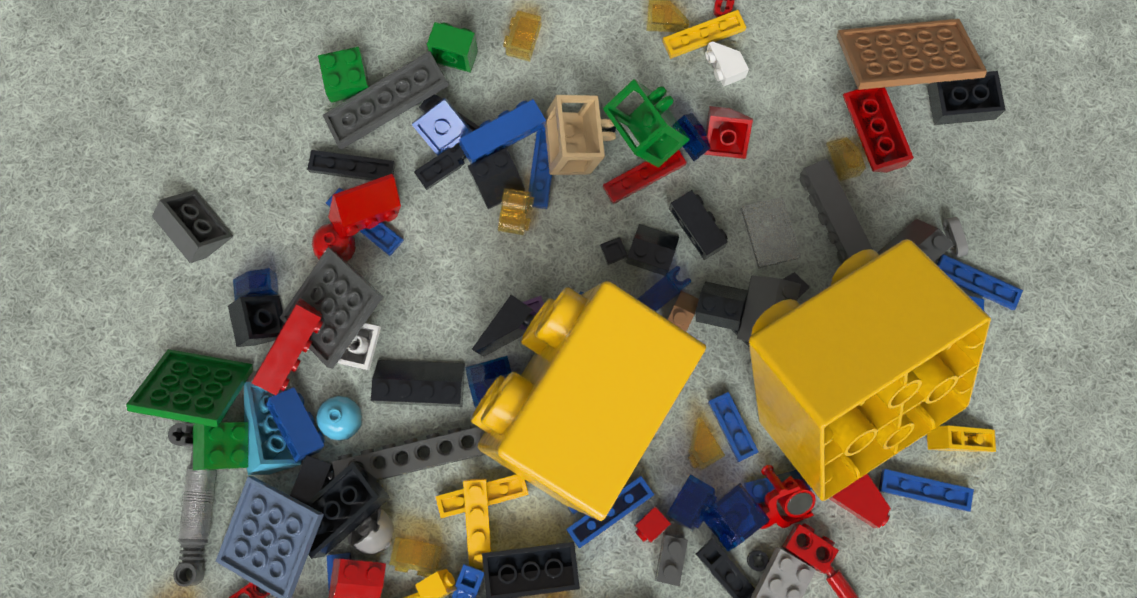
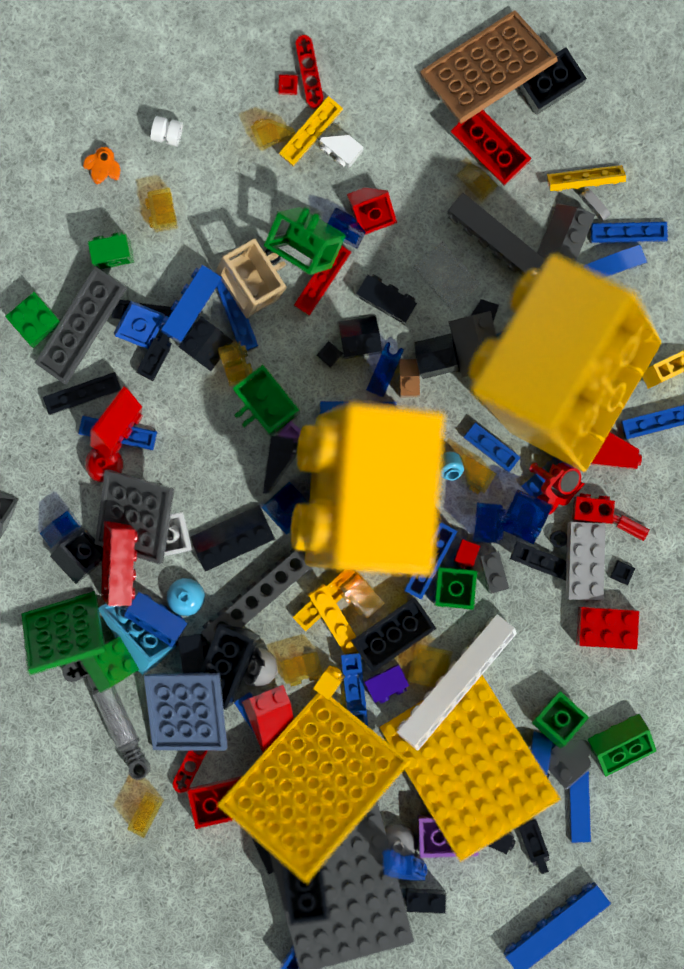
camera: 30 degrees left, 10 degrees up
(519, 511) = (362, 595): none -> clear yellow brick
(524, 261) = (265, 401): none -> green piece
(621, 555) = (455, 588): none -> green brick
(680, 423) = (451, 466): none -> medium azure head
(964, 209) = (586, 178): none -> yellow plate

